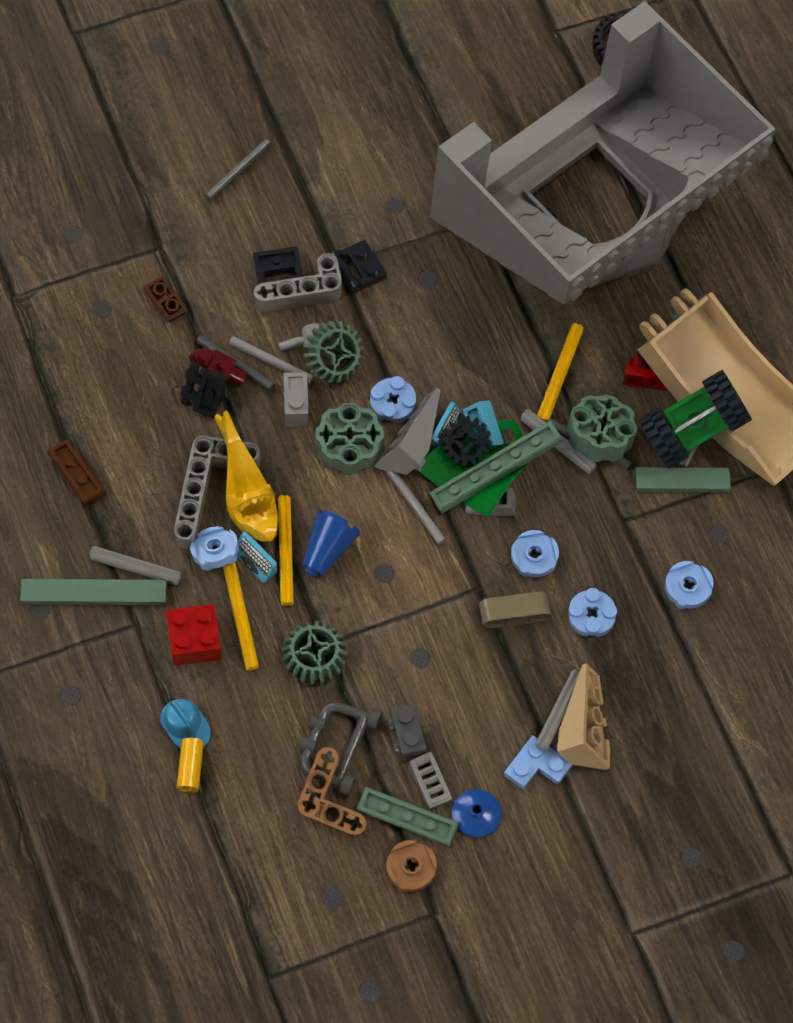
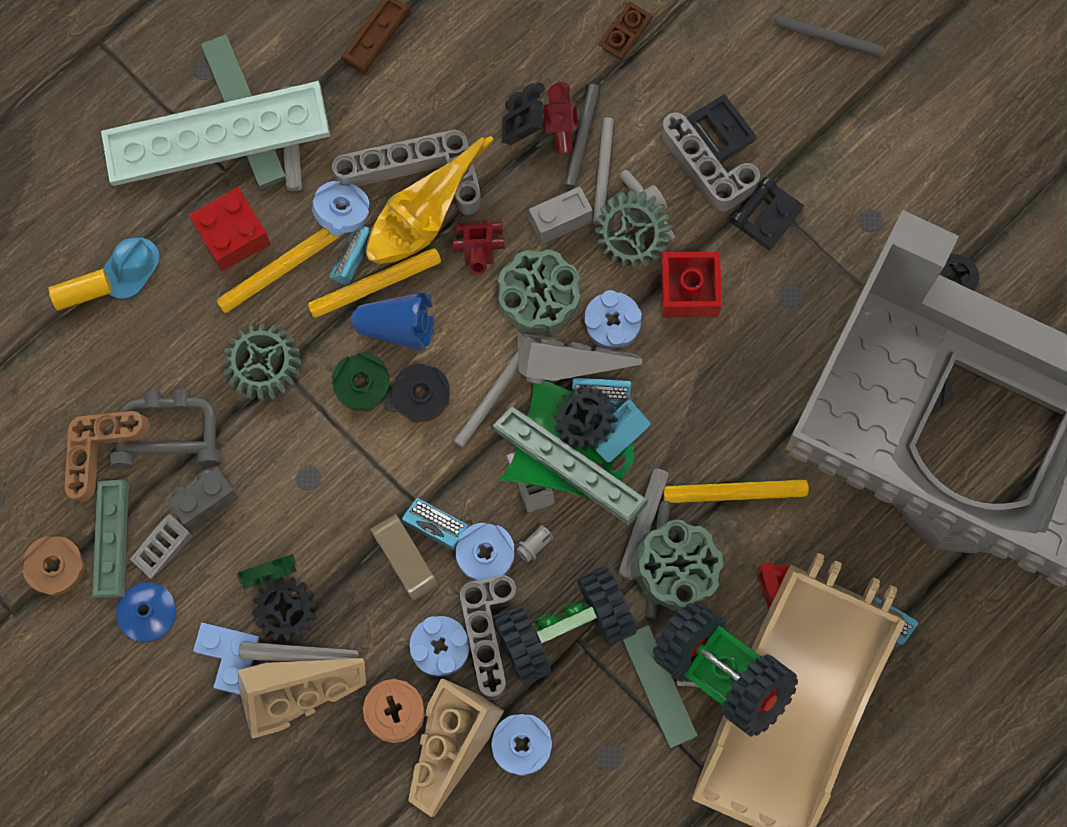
camera: 70 degrees right, 10 degrees up
(107, 616) = (215, 133): none -> light aqua plate
(291, 462) = (479, 243): none -> dark red piece
(362, 576) = (365, 397): none -> dark green plate
(393, 334) = (690, 284): none -> red brick
(398, 540) = (416, 408): none -> black plate
(487, 703) = (267, 571): none -> dark green plate
(497, 580) = (434, 523): none -> slope
(532, 710) = (271, 610): none -> black gear
(542, 518) = (534, 544): none -> light grey pin
(601, 573) = (487, 639): none -> light grey beam
(618, 543) = (602, 604): none -> black plate
(641, 656) = (377, 706): none -> nougat piece
(665, 628) = (453, 737): none -> tan wedge

